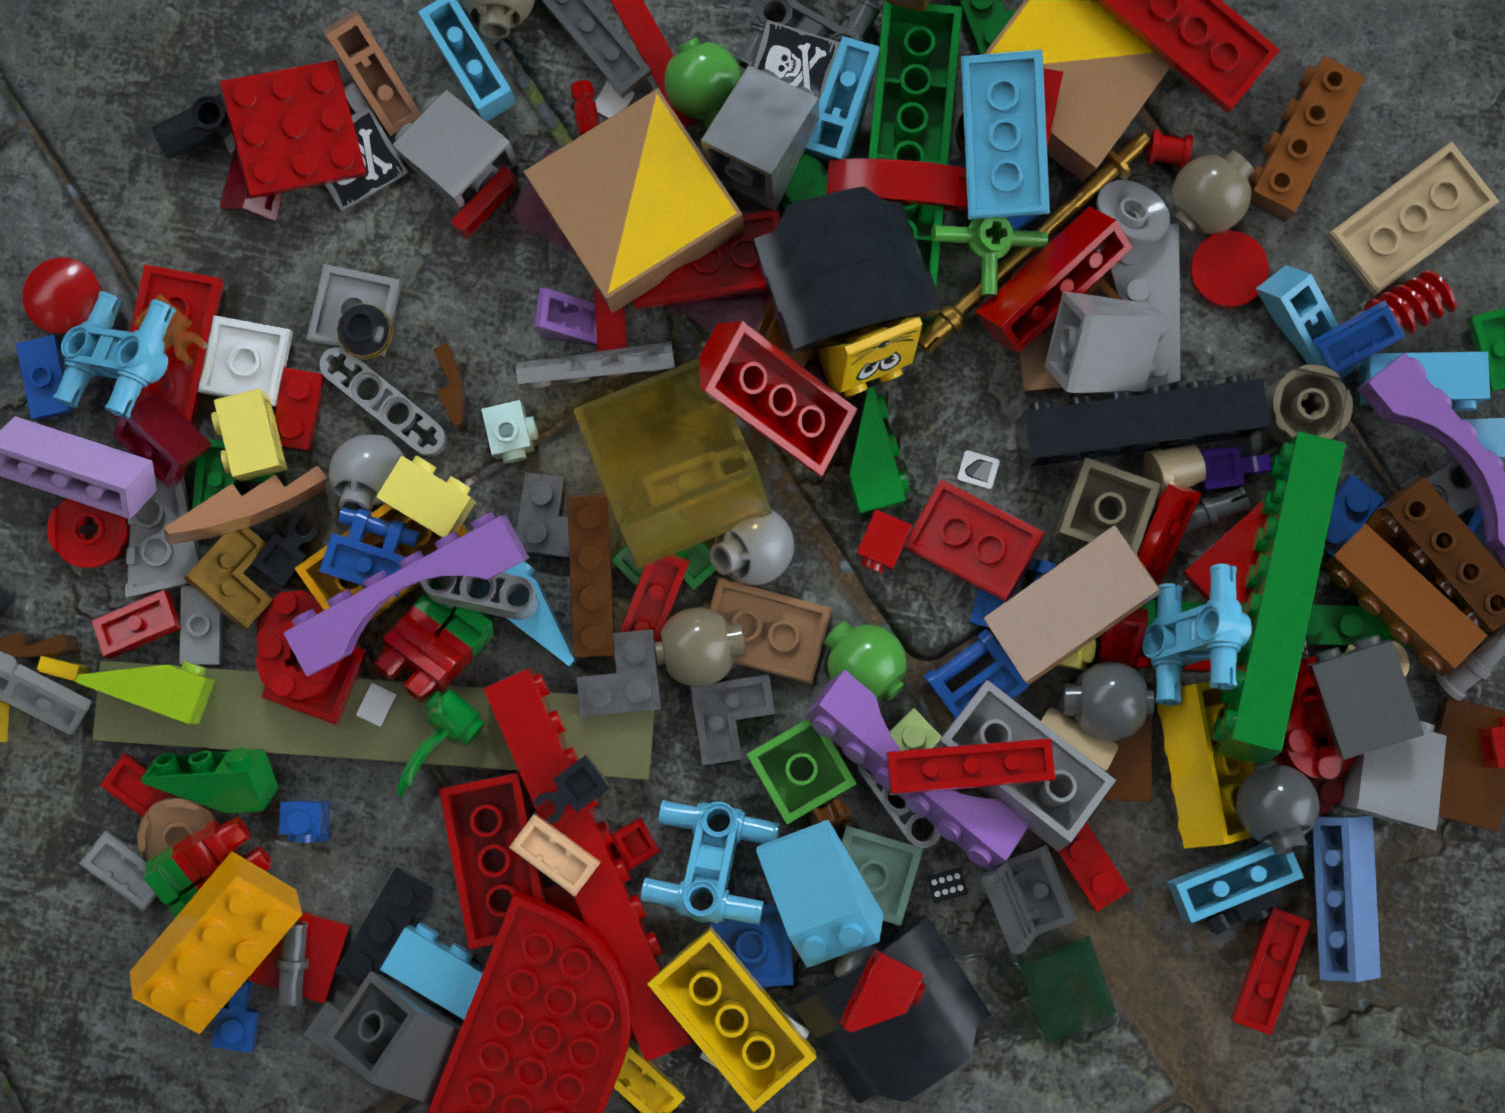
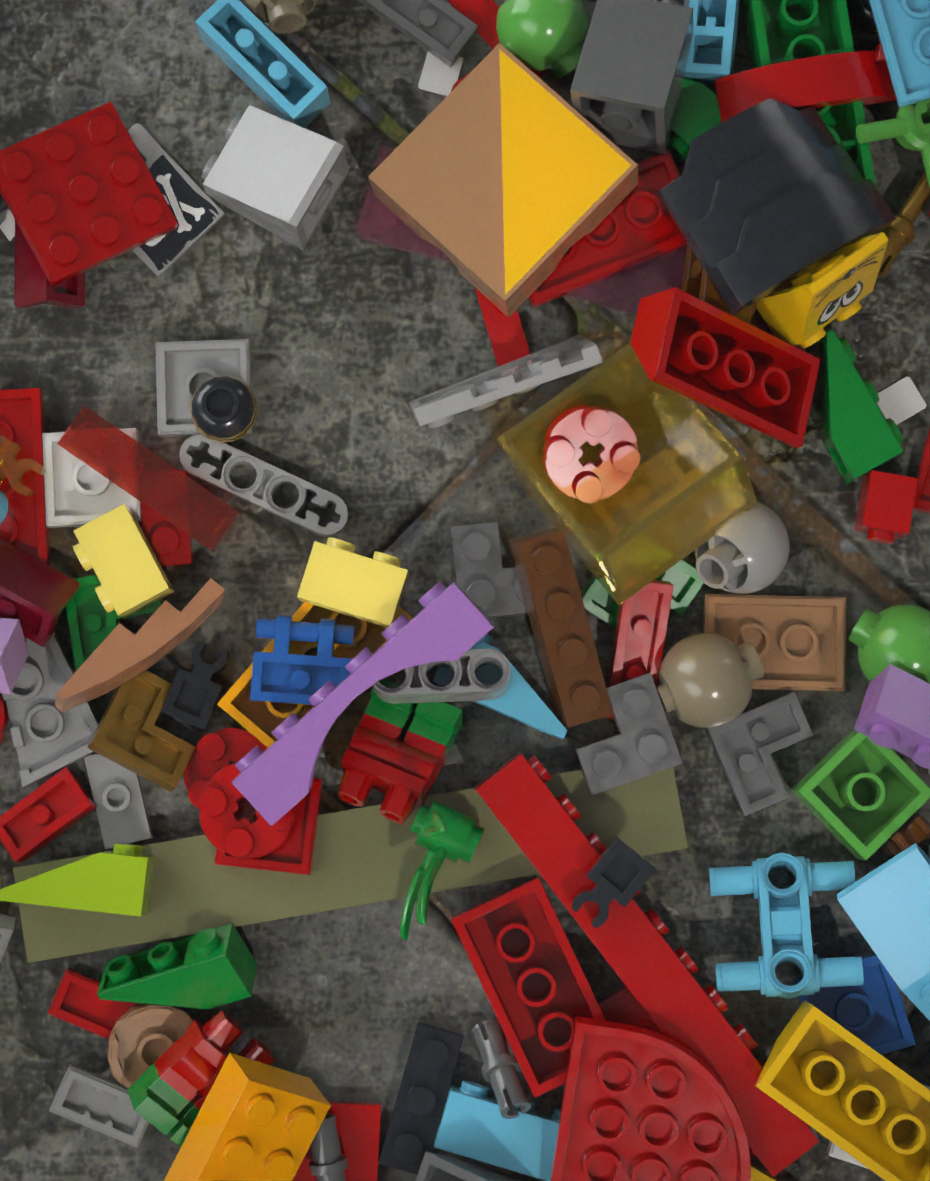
camera: 15 degrees left, 0 degrees up
(289, 373) = (149, 478): none -> clear red plate
(305, 820) = (299, 995): blue brick -> none
(361, 470) = (267, 572): light grey brick -> none
(372, 72) = (154, 104): nougat slope -> none
(376, 704) = (349, 839): white sticker -> none
(449, 922) = (500, 1069): none -> dark grey pin
(453, 395) = (345, 458): reddish brown slope -> none
(485, 203) = (325, 226): red tile -> none
(509, 431) = (422, 484): light aqua brick -> none
(555, 854) = (610, 962): light nougat plate -> none
(565, 317) = (454, 336): medium lavender slope -> none
(584, 108) = (411, 88): red axle -> none
(634, 844) = (687, 926): red slope -> none
(657, 418) = (592, 425): none -> plate
(919, 459) = (900, 401): none -> white sticker

